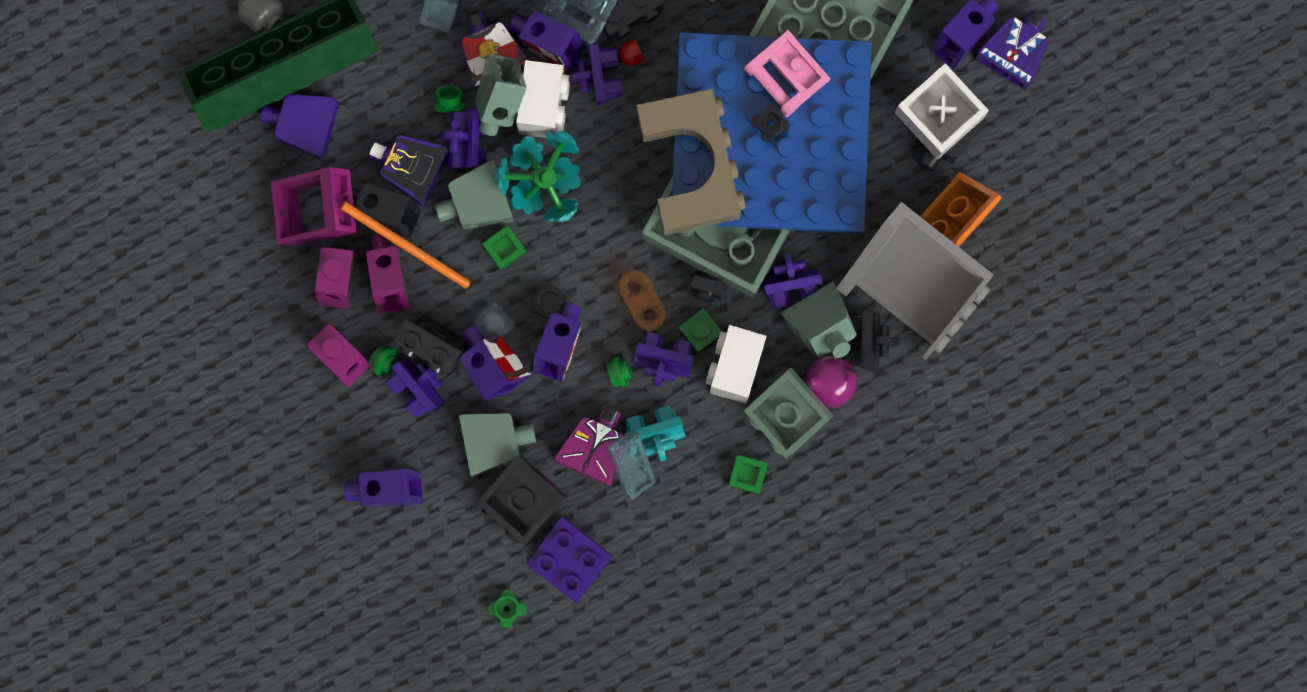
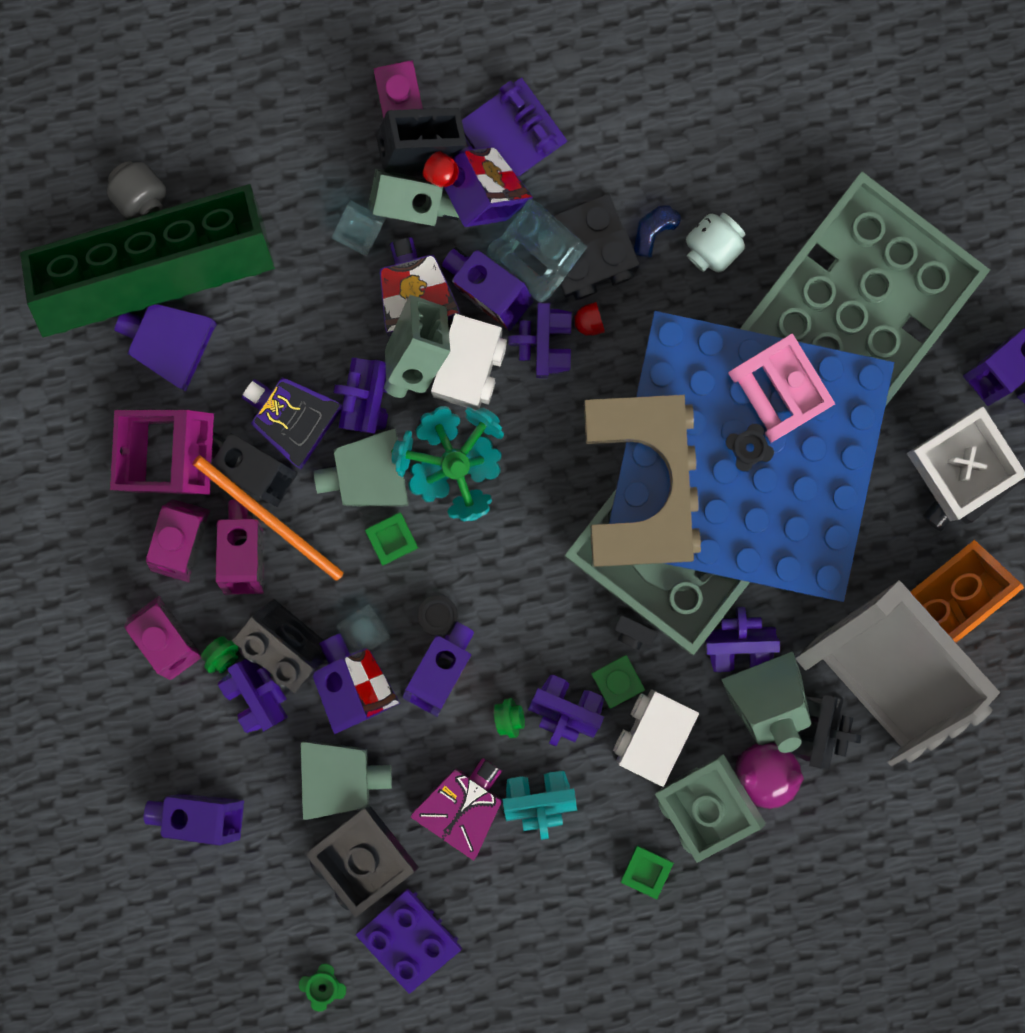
camera: 10 degrees right, 5 degrees up
(449, 99) = (353, 341): green plate -> none
(632, 465) = (505, 839): clear light blue plate -> none
(642, 301) = (551, 633): clear orange plate -> none

